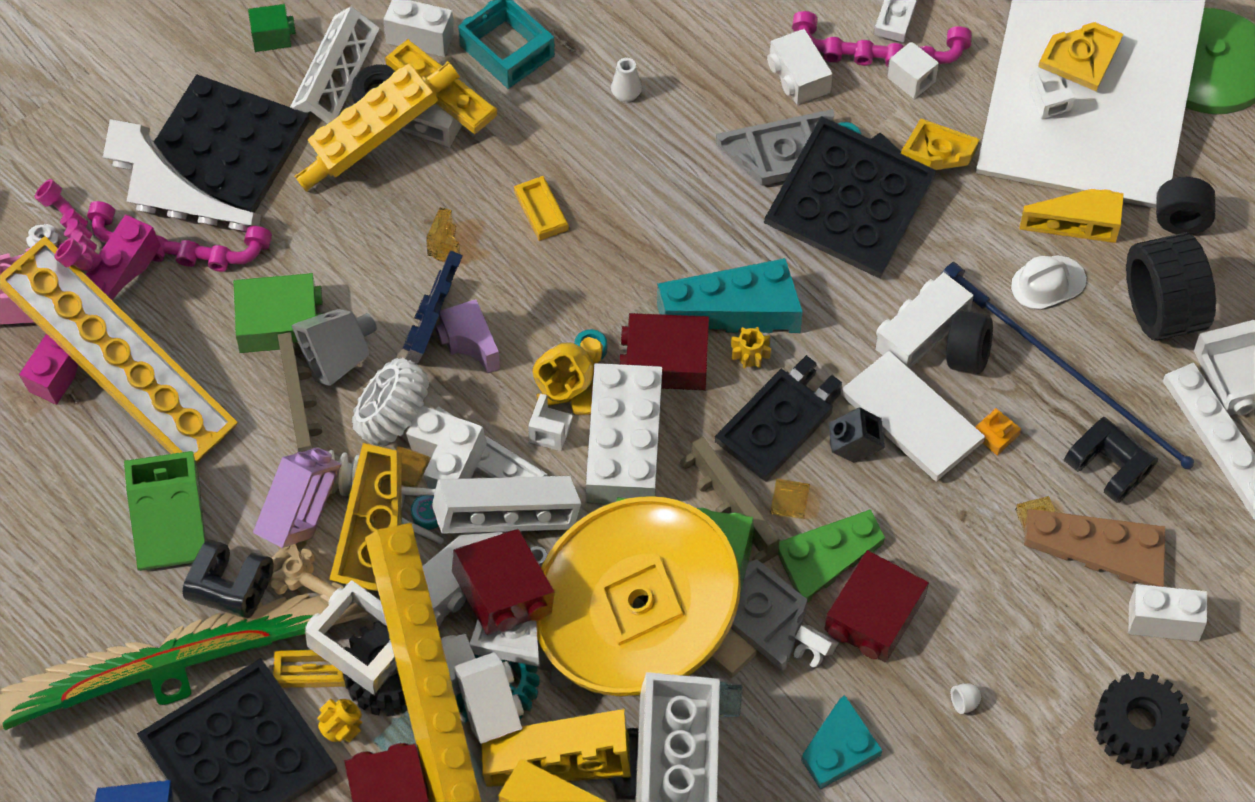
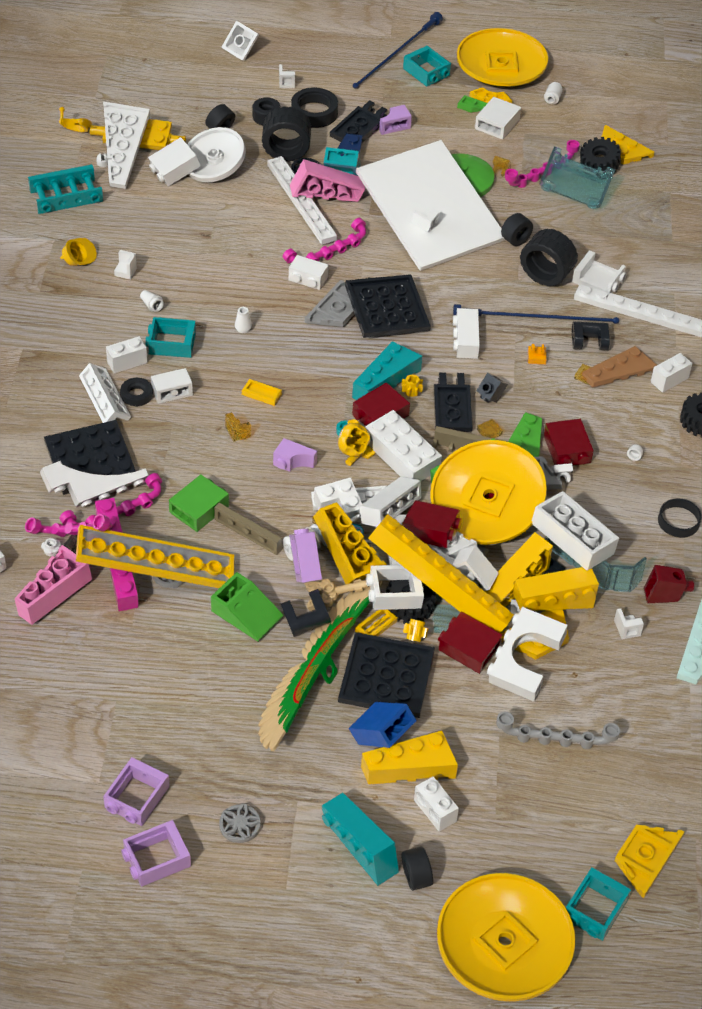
camera: 45 degrees left, 10 degrees down
(271, 27) = (57, 397): green brick -> none
(334, 343) = (242, 495): light grey torso -> none
(373, 121) = (158, 399): yellow plate -> none
(390, 402) = (297, 497): white gear -> none
(430, 309) = (277, 456): dark blue wing -> none
(456, 98) = (170, 367): yellow tile -> none
(548, 426) = (366, 468): white panel -> none
(840, 746) = (610, 501): teal wing -> none
(912, 70) = (354, 246): white panel -> none
(913, 415) = (508, 368): white tile -> none
(939, 146) = (398, 266): yellow plate -> none
(969, 342) = (494, 327): black tyre -> none
(1048, 281) = (493, 292): white piece -> none
(1082, 54) = (422, 196): yellow plate -> none
(1083, 215) = (480, 258): yellow slope -> none

